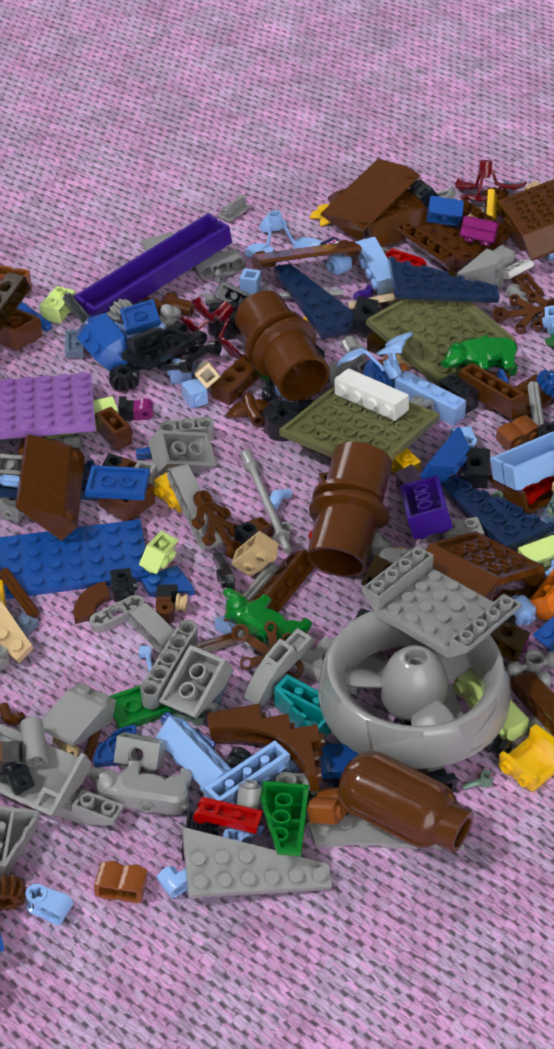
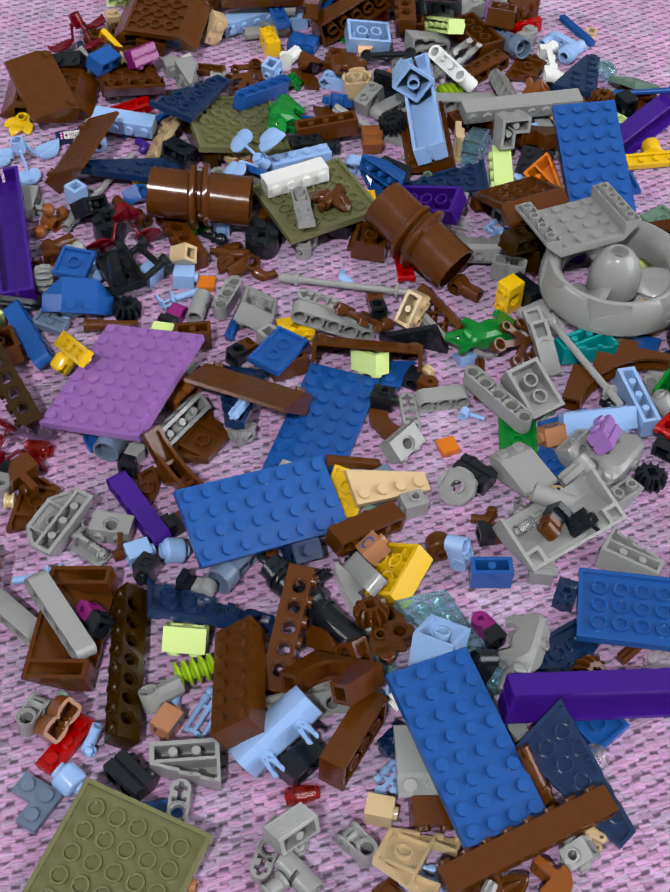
camera: 65 degrees left, 5 degrees up
(30, 368) = (70, 353): none -> yellow plate
(31, 678) = (468, 486): none -> light grey plate
(45, 336) = (28, 334): none -> blue beam
(52, 616) = (393, 446): none -> light grey brick
(59, 680) = (483, 474): none -> black brick
(87, 364) = (100, 324): none -> reddish brown pin
(91, 656) = (447, 446): none -> orange tile
(103, 757) = (577, 469): none -> light grey piece
(141, 829) = (651, 477): none -> black gear
(148, 723) = (551, 434): none -> nougat brick
(152, 419) = (198, 305): none -> light grey pin
(157, 757) = (603, 434): none -> medium lavender brick
(165, 400) = (174, 298): none -> light blue piece
(177, 545) = (323, 341): none -> reddish brown slope
(201, 410) = (207, 282): none -> orange tile
(204, 285) = (49, 221): none -> dark orange piece
(228, 489) = (313, 297): none -> light grey beam
(238, 421) = (241, 265): none -> reddish brown piece
(240, 441) = (262, 275): none -> reddish brown arm
(299, 456) = (305, 248): none -> light grey piece
(306, 661) = (608, 391): none -> light grey bar
(324, 417) = (302, 207): none -> light grey slope
(333, 586) = (462, 286): none -> reddish brown piece
(336, 616) = (509, 294): none -> yellow brick
(357, 428) = (334, 197): none -> reddish brown plant
(478, 411) = (334, 145): none -> black wheel
(507, 326) = (260, 92): none -> blue beam

